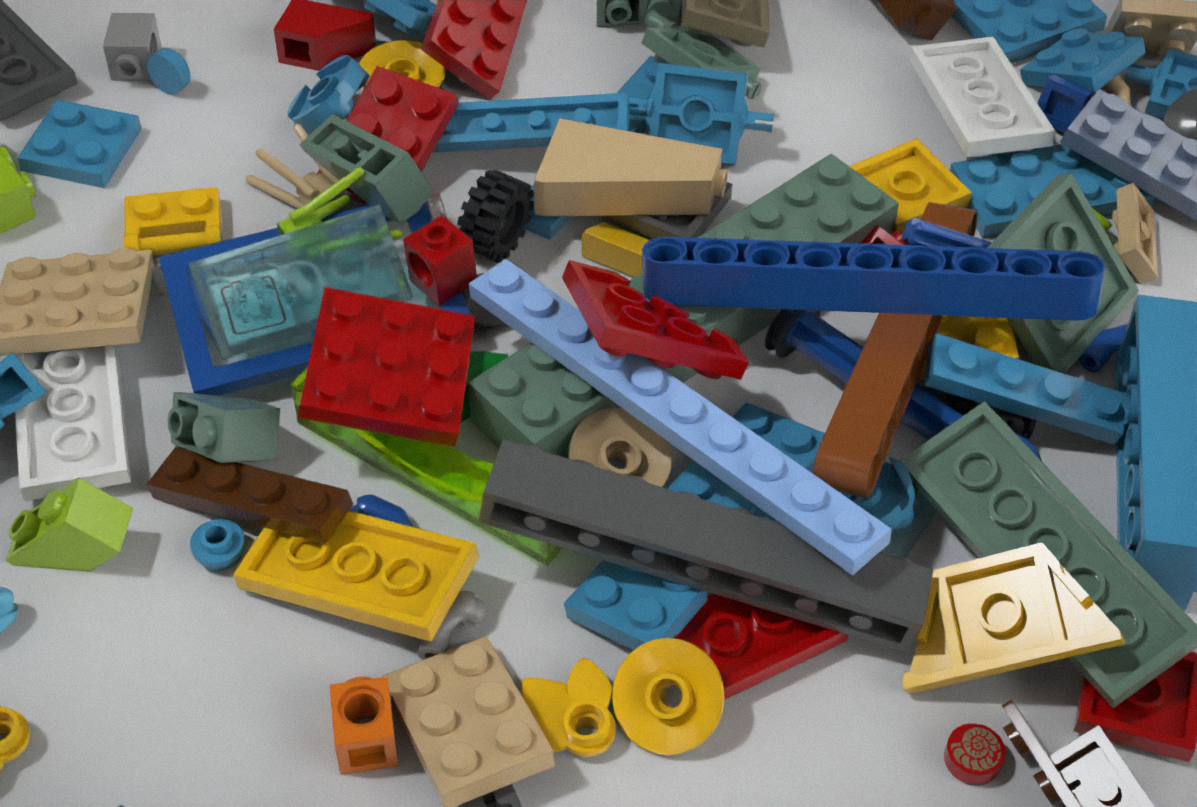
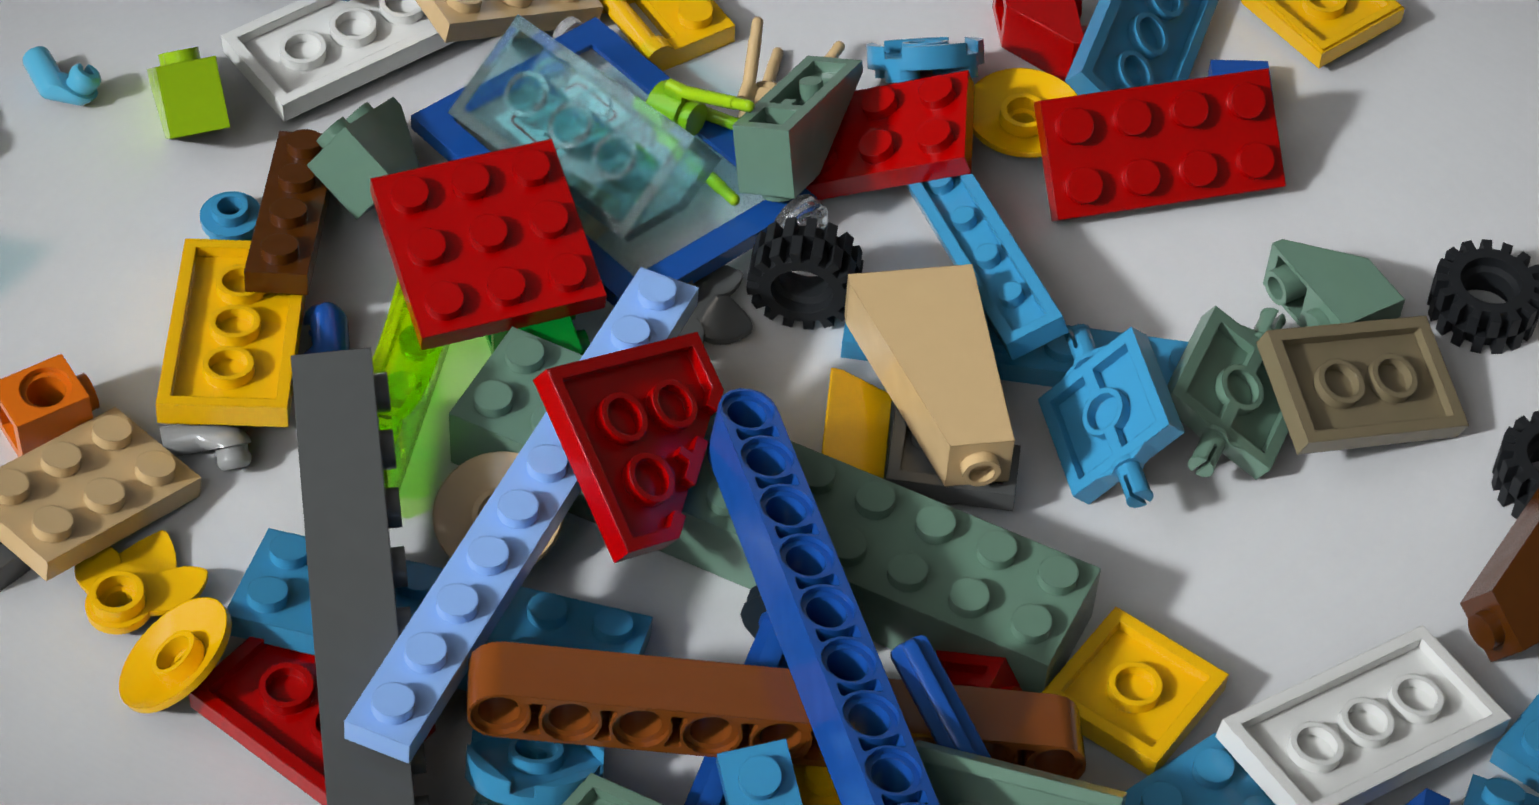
camera: 65 degrees right, 0 degrees up
(440, 260) = (680, 234): red brick -> none

